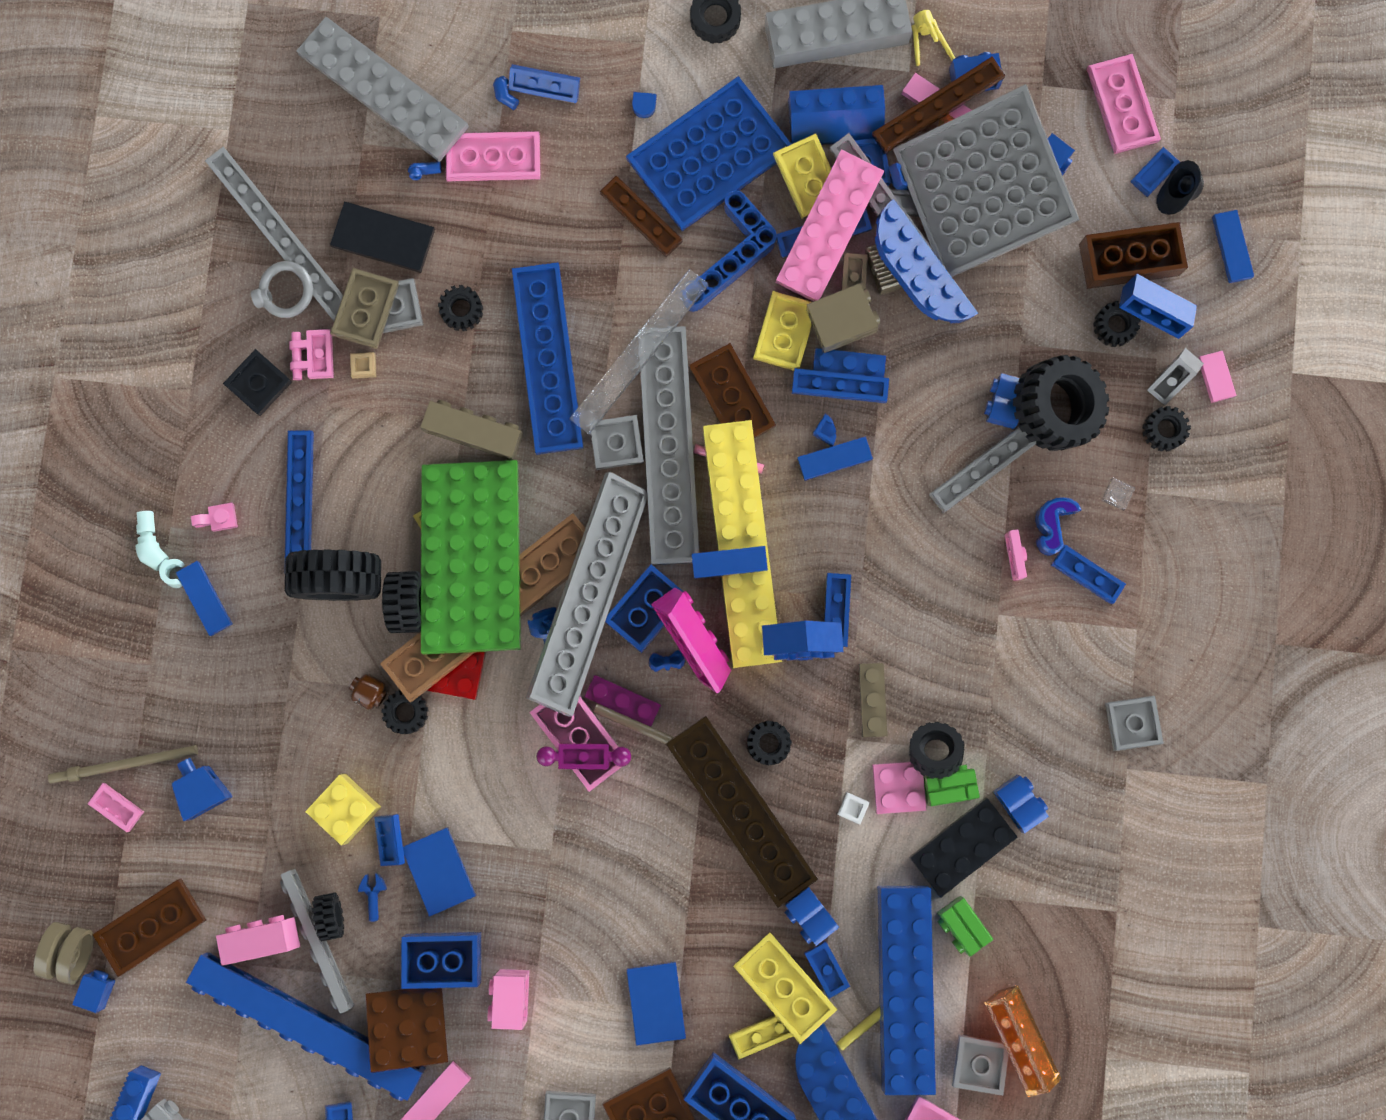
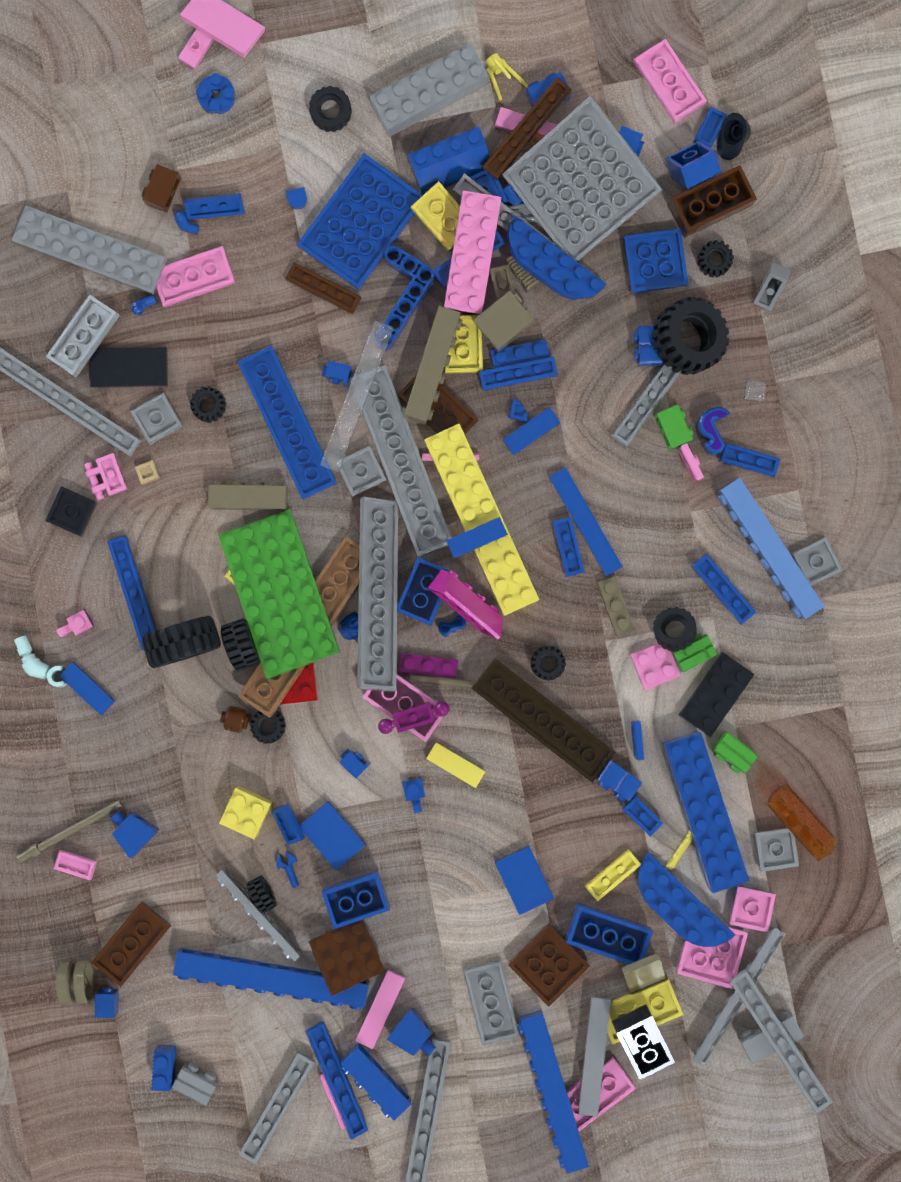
camera: 20 degrees left, 5 degrees up
(257, 940) = (215, 927): bright pink brick -> none
(263, 298) = (53, 444): light grey piece -> none
(341, 183) = (82, 335): none -> light grey plate
(364, 308) = (134, 428): dark tan tile -> none
(489, 44) = (161, 188): none -> reddish brown brick
(493, 790) = (353, 762): none -> blue brick
(510, 999) = (416, 911): bright pink brick -> none
(556, 848) = (414, 791): none -> blue plate
(617, 832) = (455, 765): none -> light yellow tile
(625, 318) = (337, 373): none -> blue brick
(741, 343) = (432, 364): none -> dark tan brick
(785, 988) = (615, 839): light yellow tile -> none
(802, 640) = (550, 579): blue brick -> none
(849, 872) = (637, 740): none -> blue tile
(853, 808) = (625, 691): white tile -> none
(867, 587) = (585, 522): none -> blue tile
(1008, 506) = (674, 427): none -> bright green brick
(1010, 720) = (723, 589): none -> blue plate
(1021, 804) = (749, 648): blue brick -> none
(1045, 304) = (655, 261): none -> blue plate
(1082, 690) = (770, 549): none -> medium blue brick
(1123, 206) = (693, 165): none -> blue brick
(1157, 306) = (742, 236): blue brick -> none
(1176, 419) = (784, 320): black tyre -> none
(1217, 377) = (803, 276): bright pink tile -> none
(1233, 246) = (787, 169): blue tile -> none

